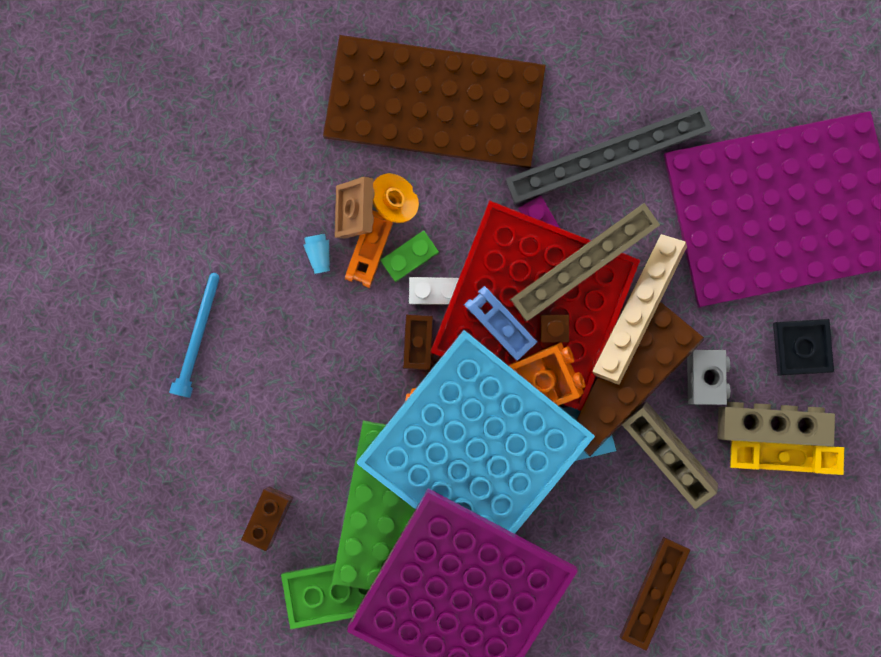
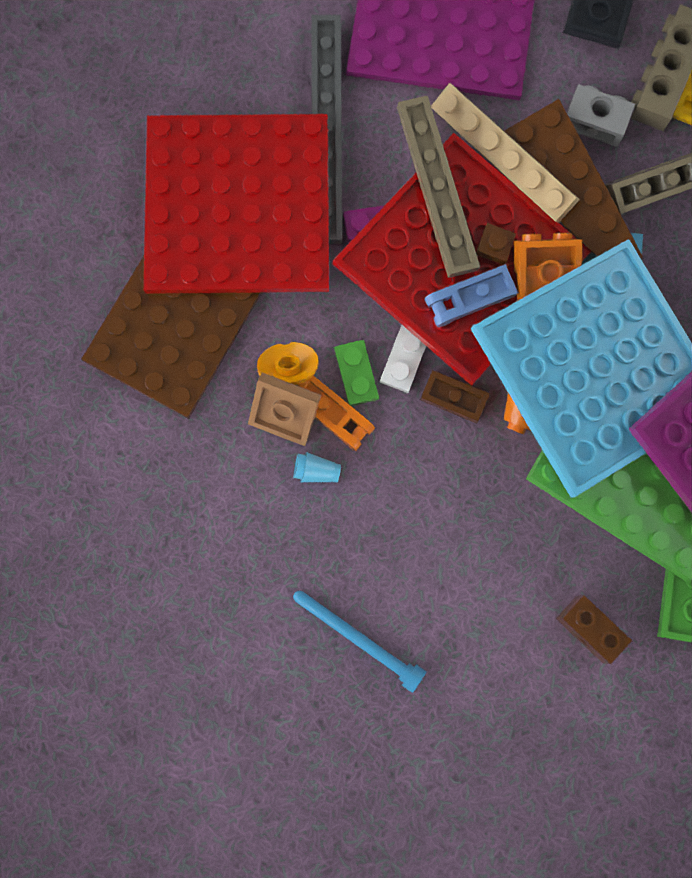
camera: 75 degrees left, 5 degrees down
(513, 106) = (236, 203): none -> red plate

